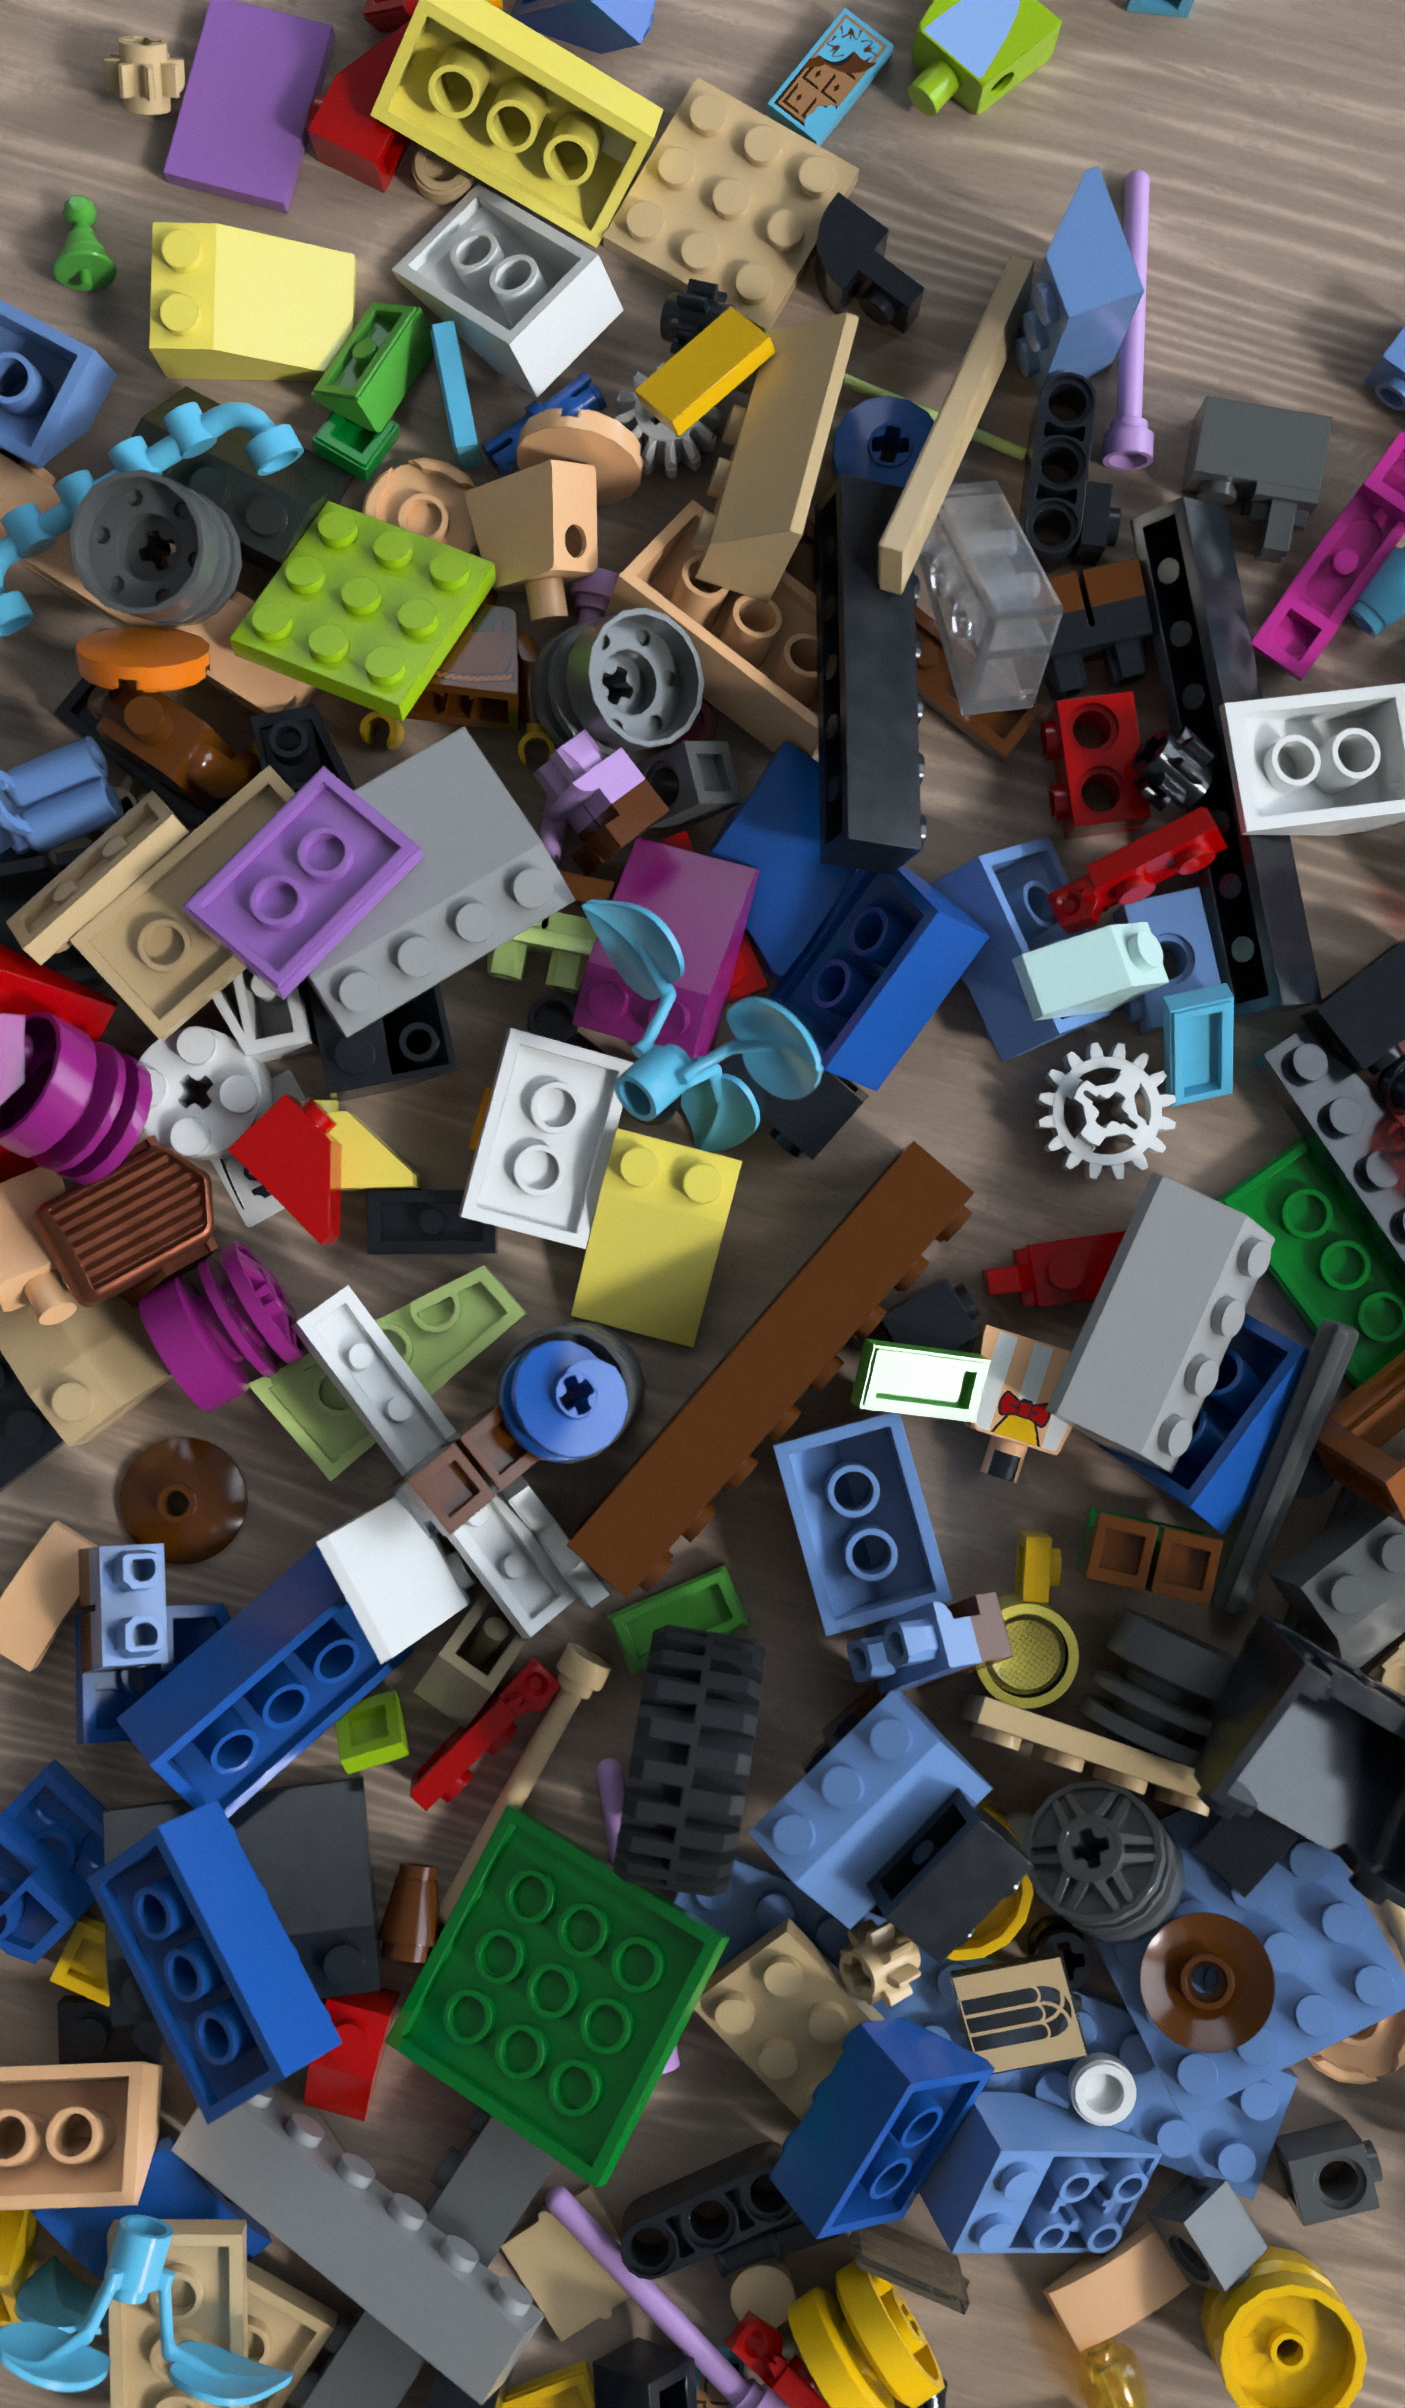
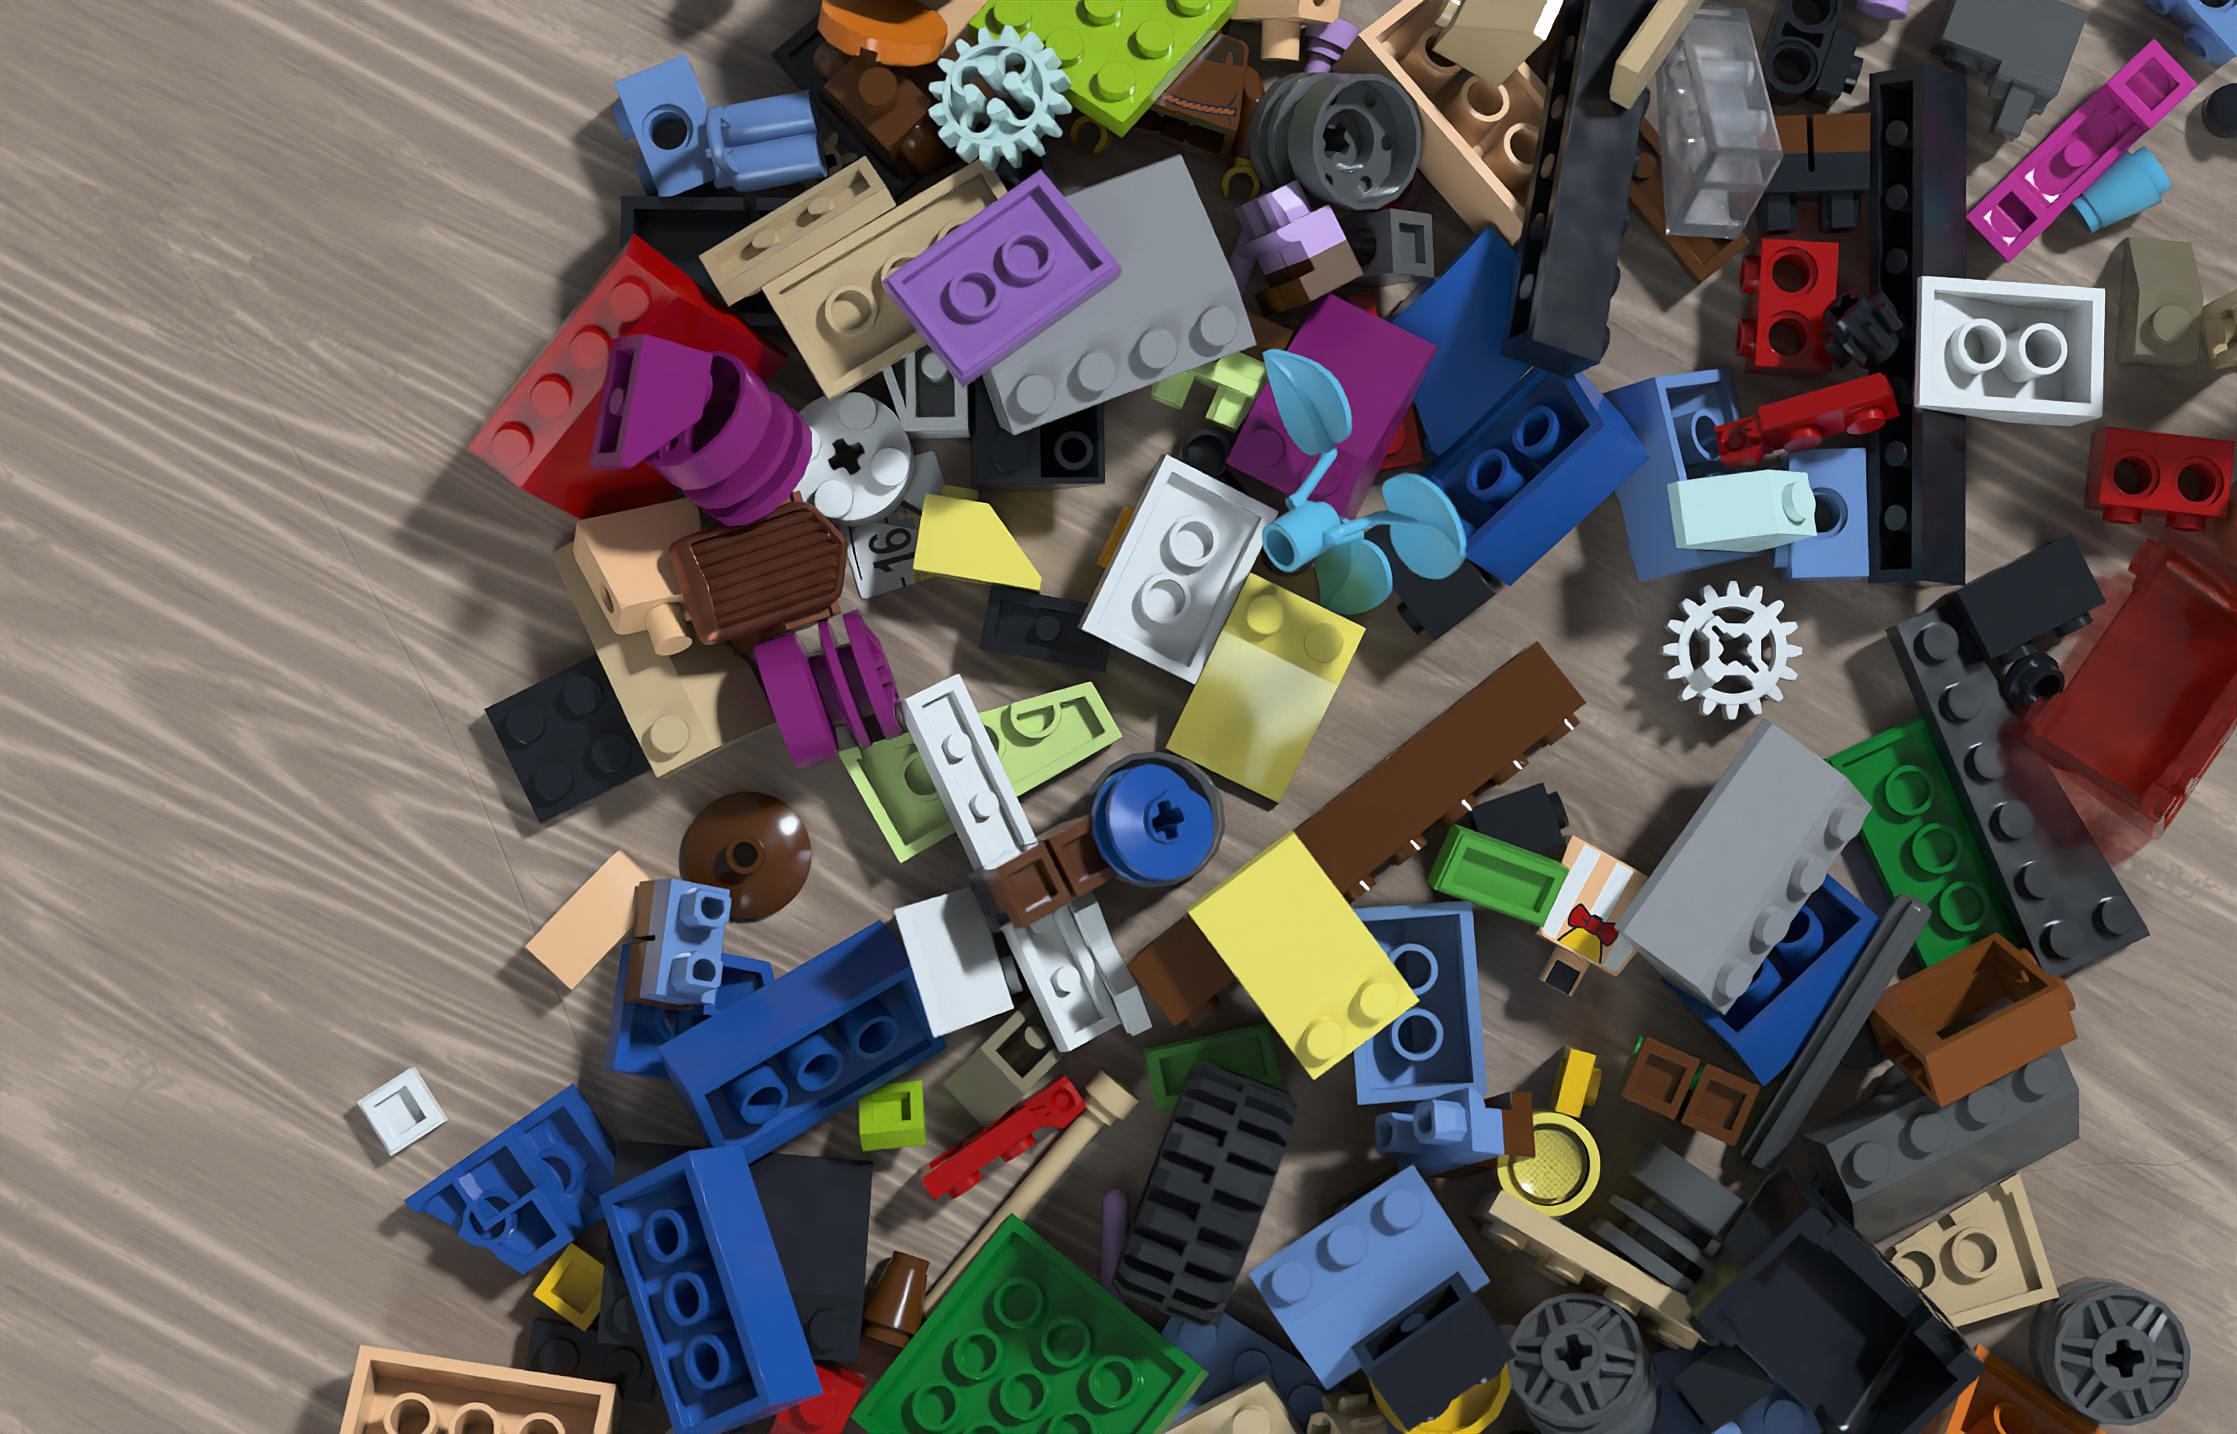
camera: 10 degrees right, 0 degrees up
(297, 1163) = (935, 544): red slope -> none
(303, 688) = (1033, 90): none -> light aqua gear
(739, 1503) = (1302, 954): none -> light yellow slope
(1056, 1270) = (1650, 797): red hinge -> none
(1198, 1043) = (1834, 602): medium azure tile -> none

